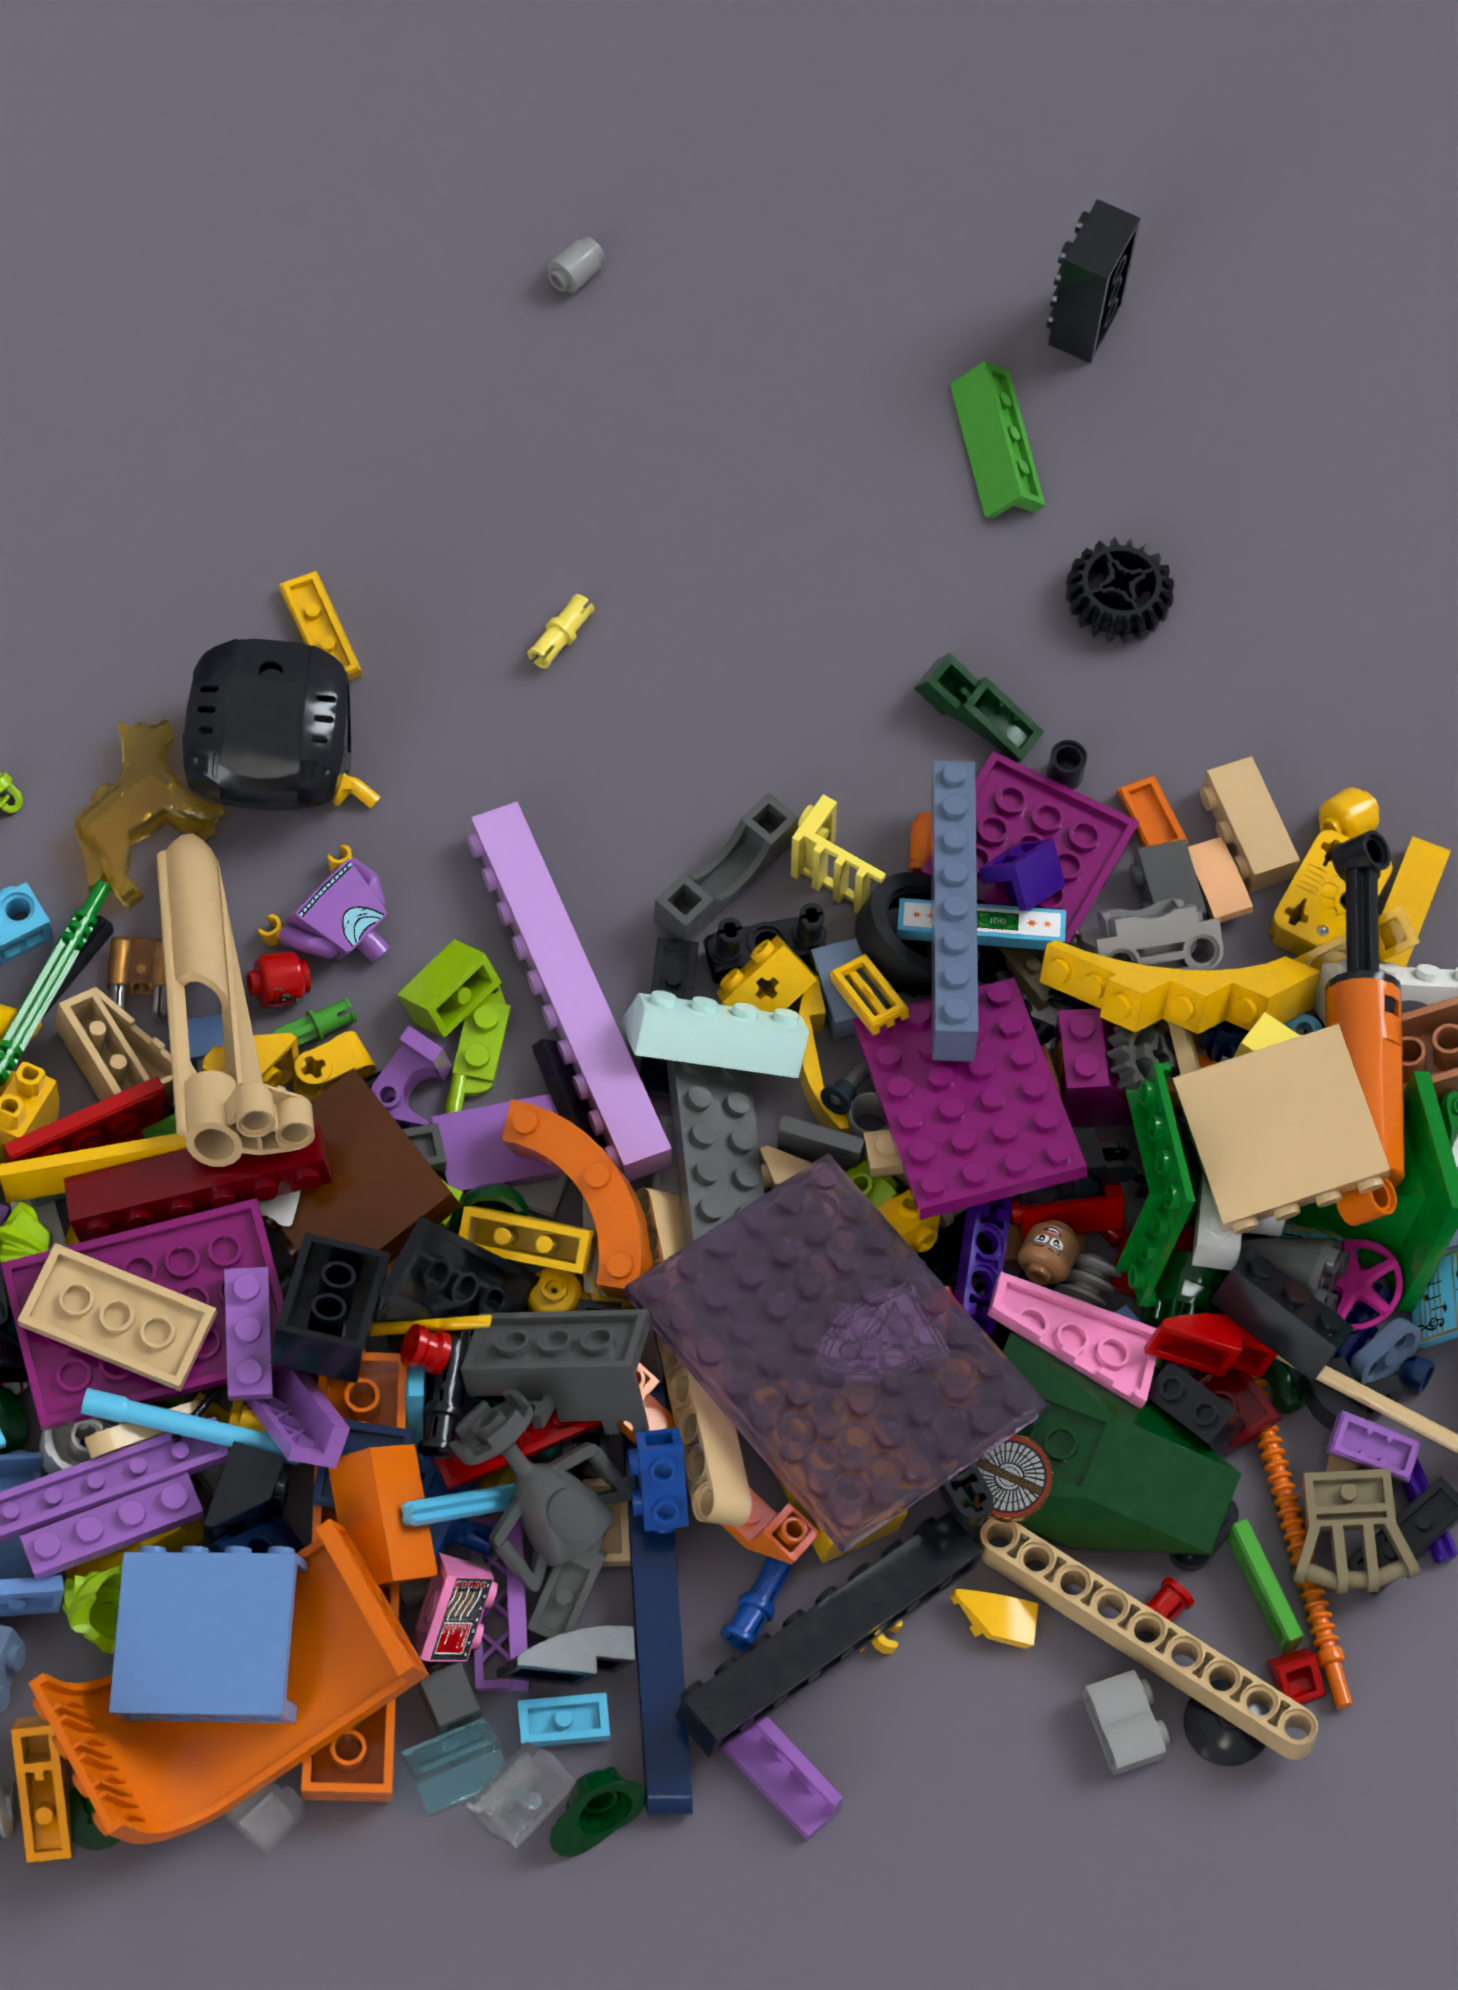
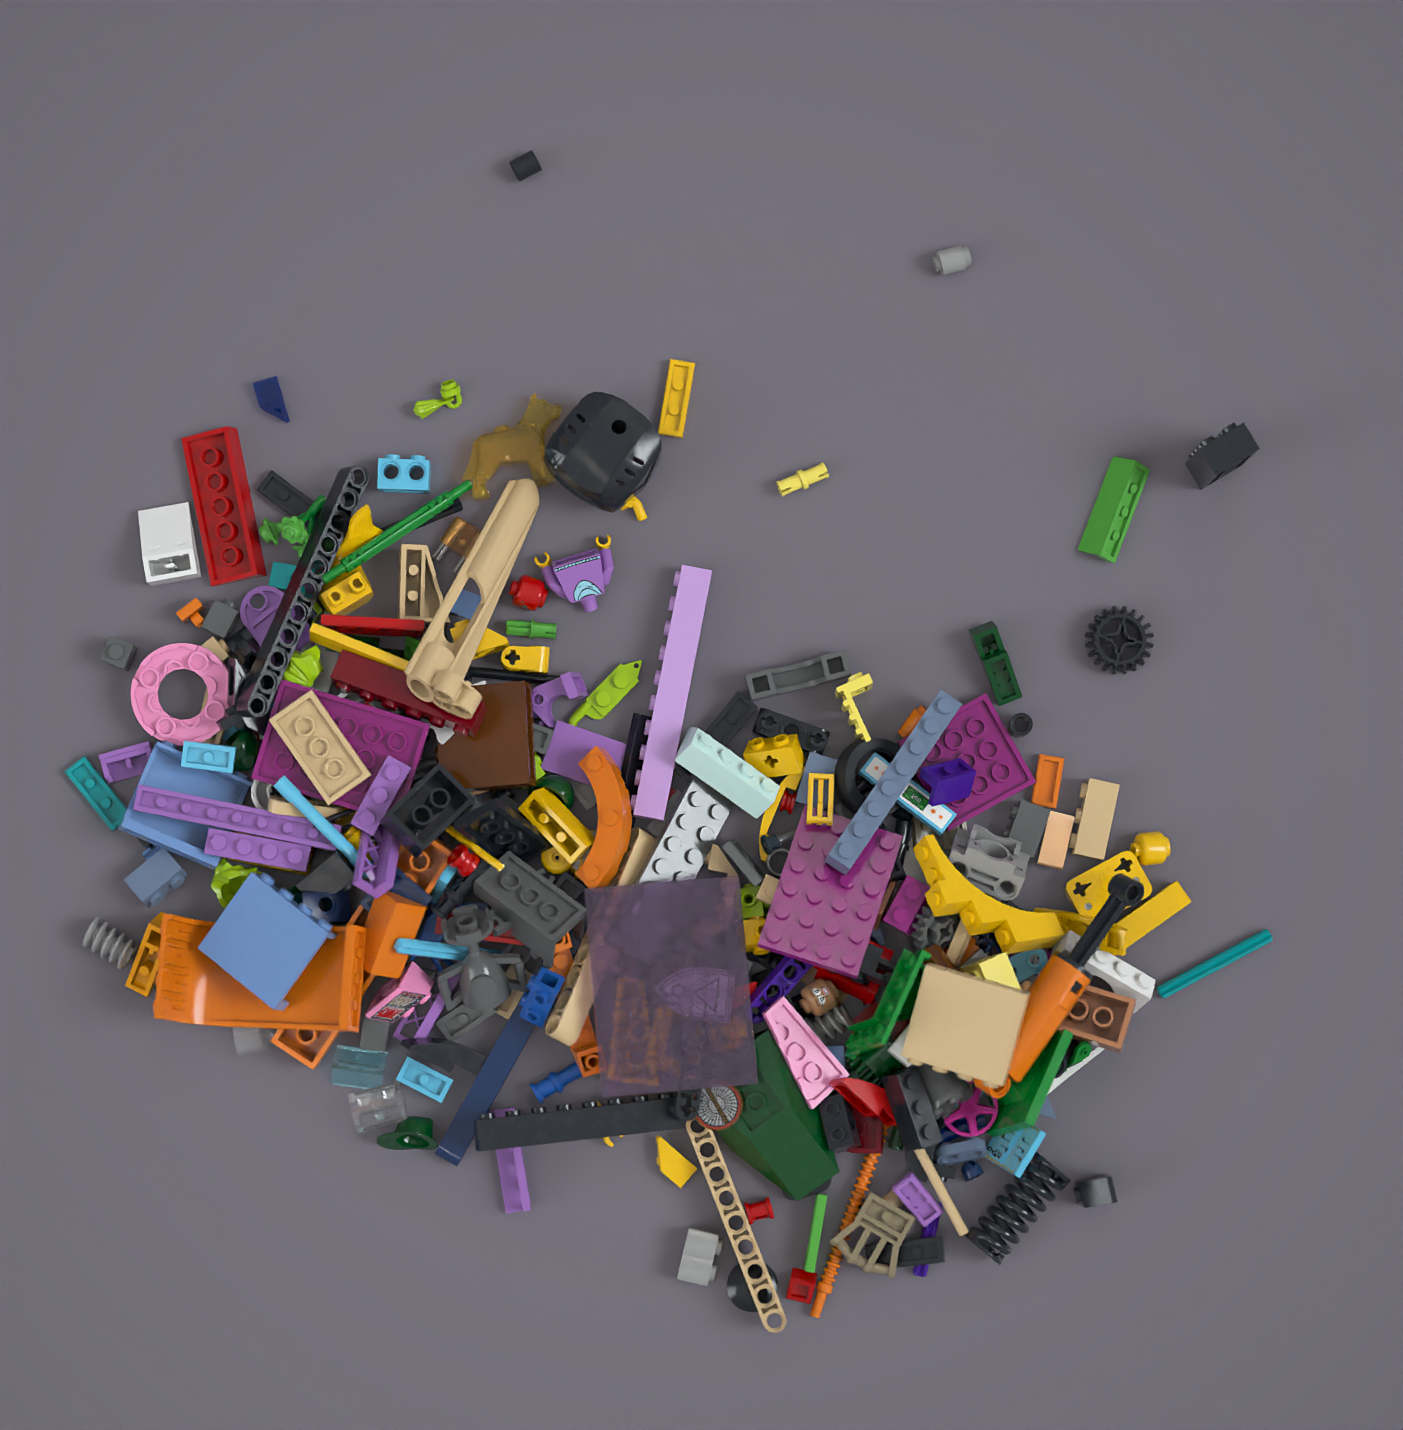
camera: 35 degrees right, 20 degrees up
(449, 988) = (611, 653): lime brick -> none
(826, 1041) = (788, 802): none -> red bush

